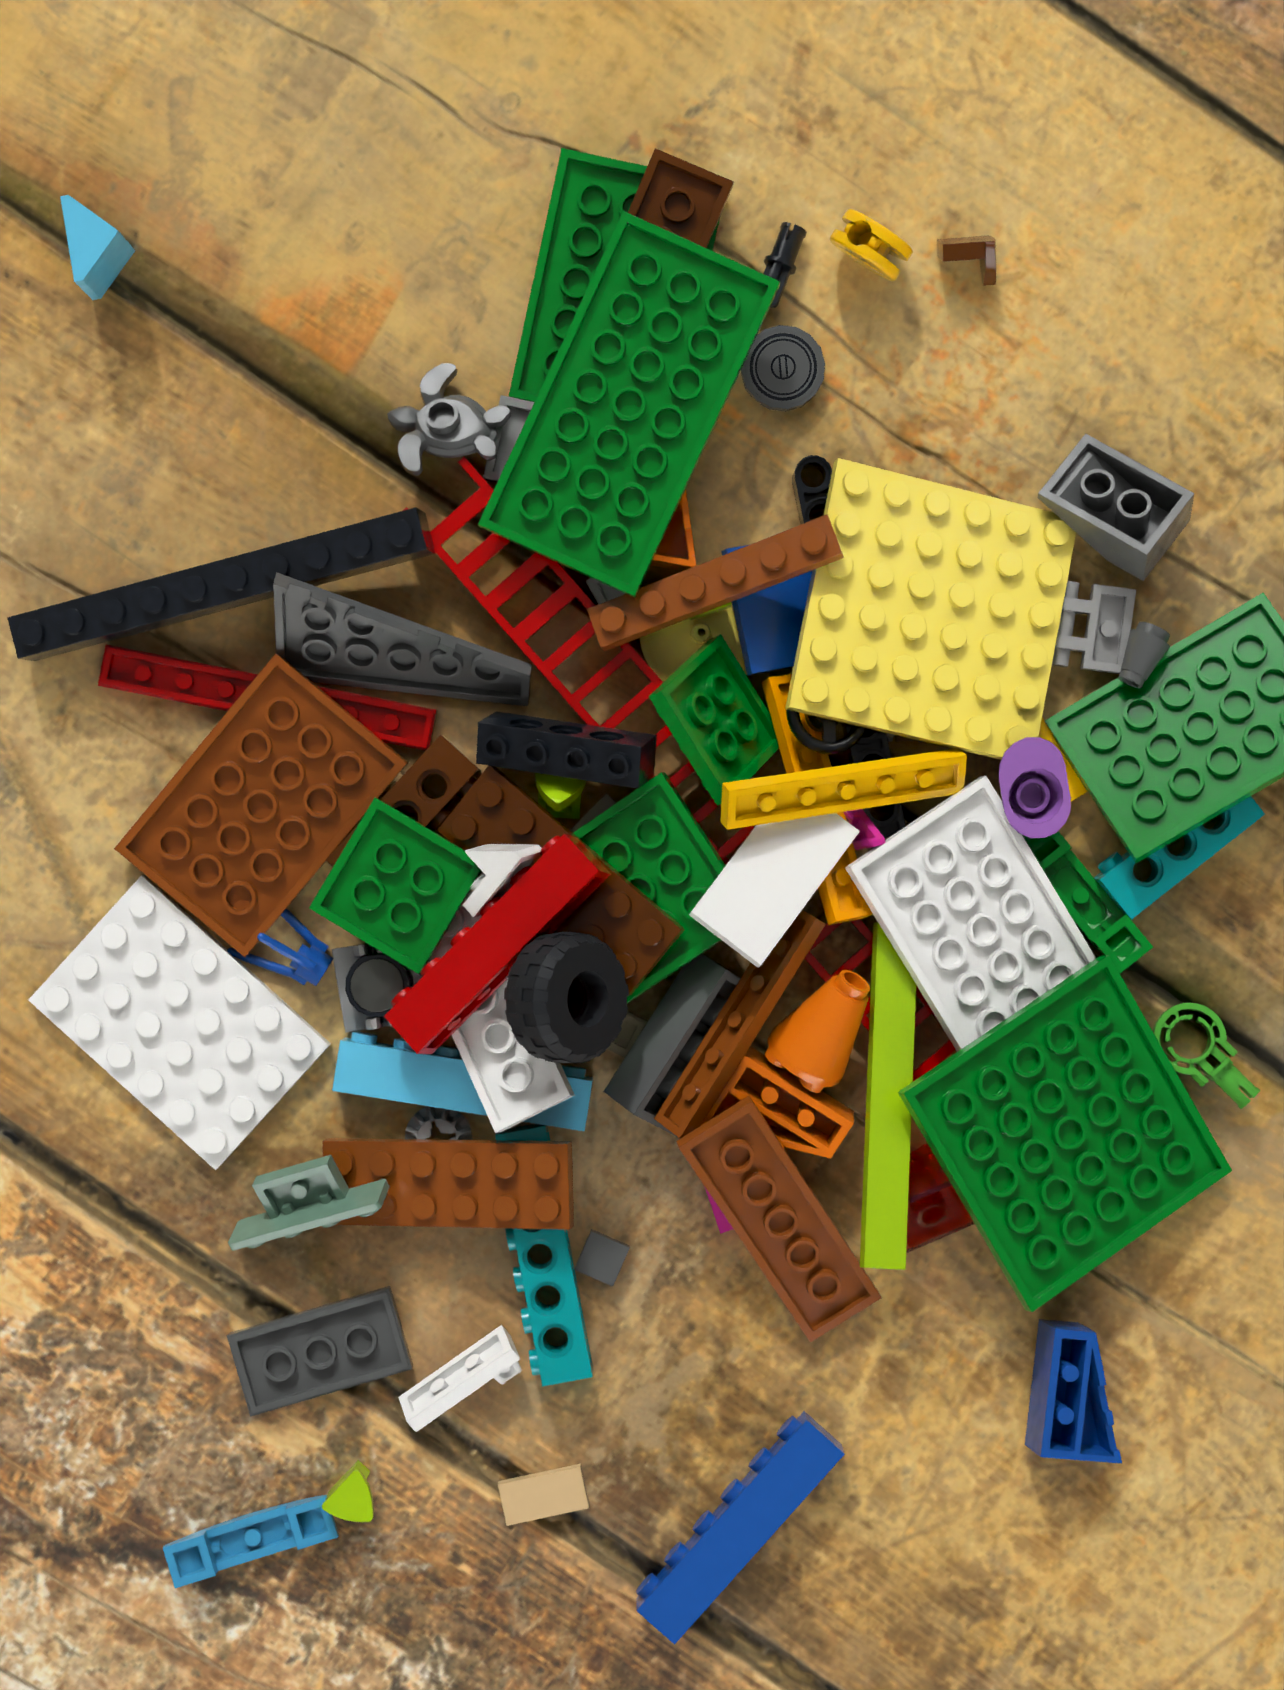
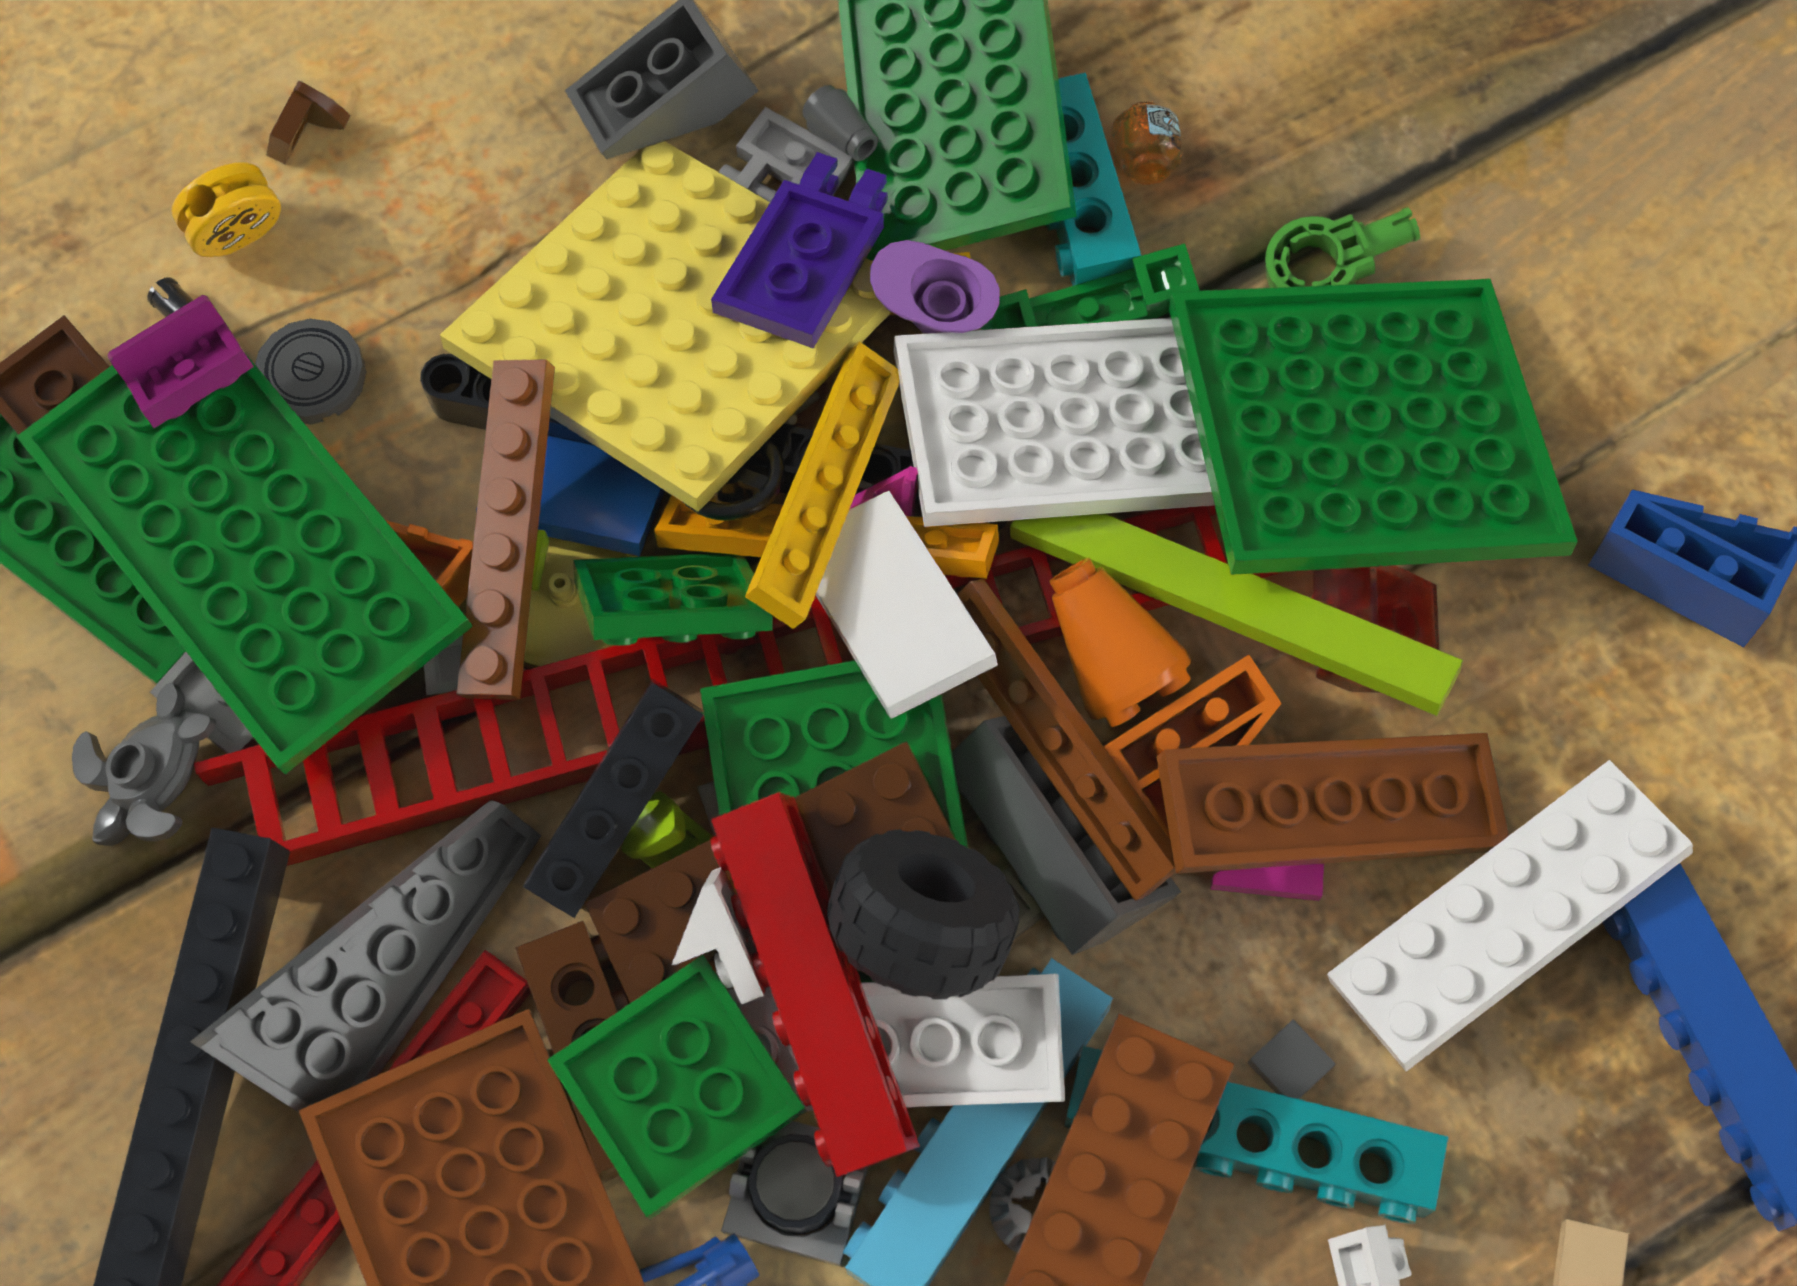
camera: 65 degrees left, 20 degrees down
(720, 303) = (180, 360): none -> magenta bracket
(759, 1360) = (1509, 914): none -> white plate
(1016, 684) = (803, 254): none -> dark purple tile
(1231, 881) = (1147, 143): none -> clear orange head

